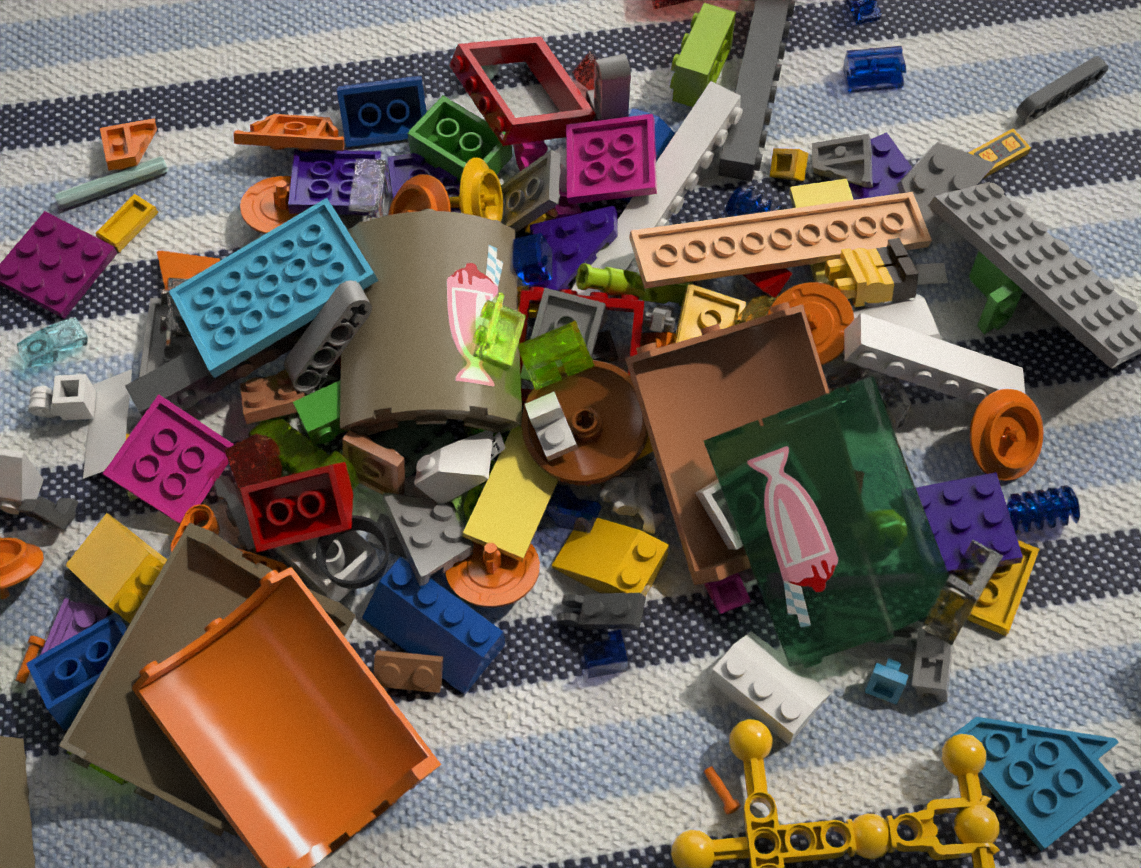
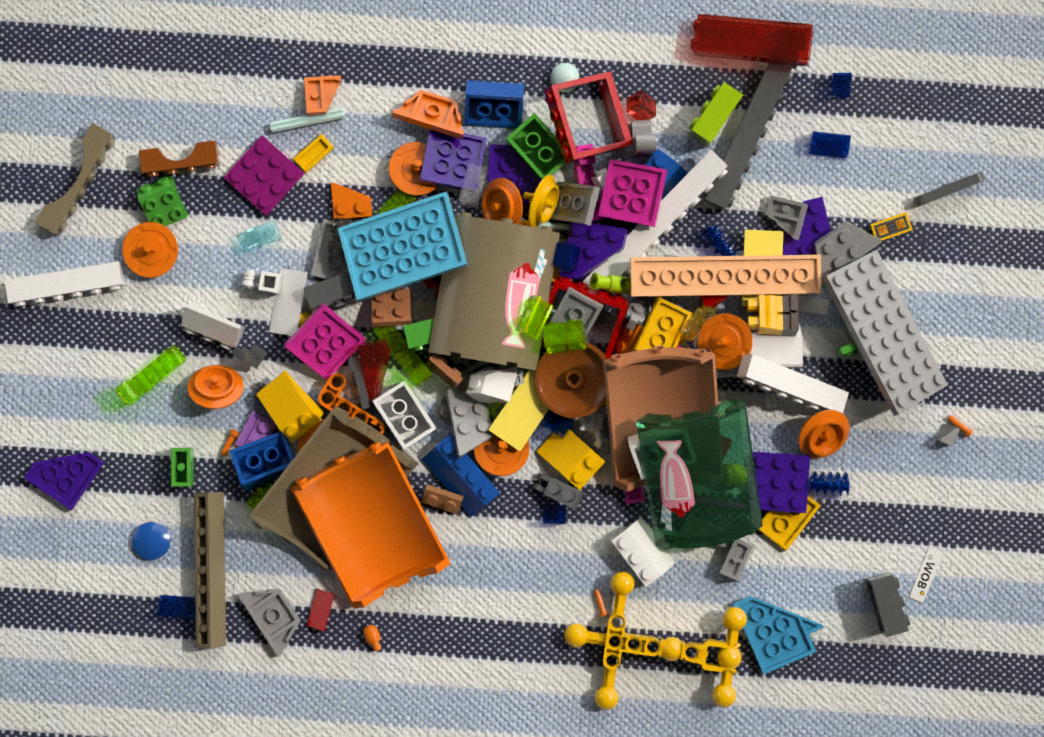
camera: 10 degrees right, 25 degrees up
(299, 506) = (397, 398): red slope -> none
(314, 356) = (421, 297): light grey beam -> none
(359, 523) = (404, 432): black tyre -> none
(551, 426) = (552, 378): white slope -> none
(788, 164) = (751, 206): yellow slope -> none
(887, 681) = (708, 564): dark azure tile -> none
(962, 592) = (752, 541): clear smoke window -> none

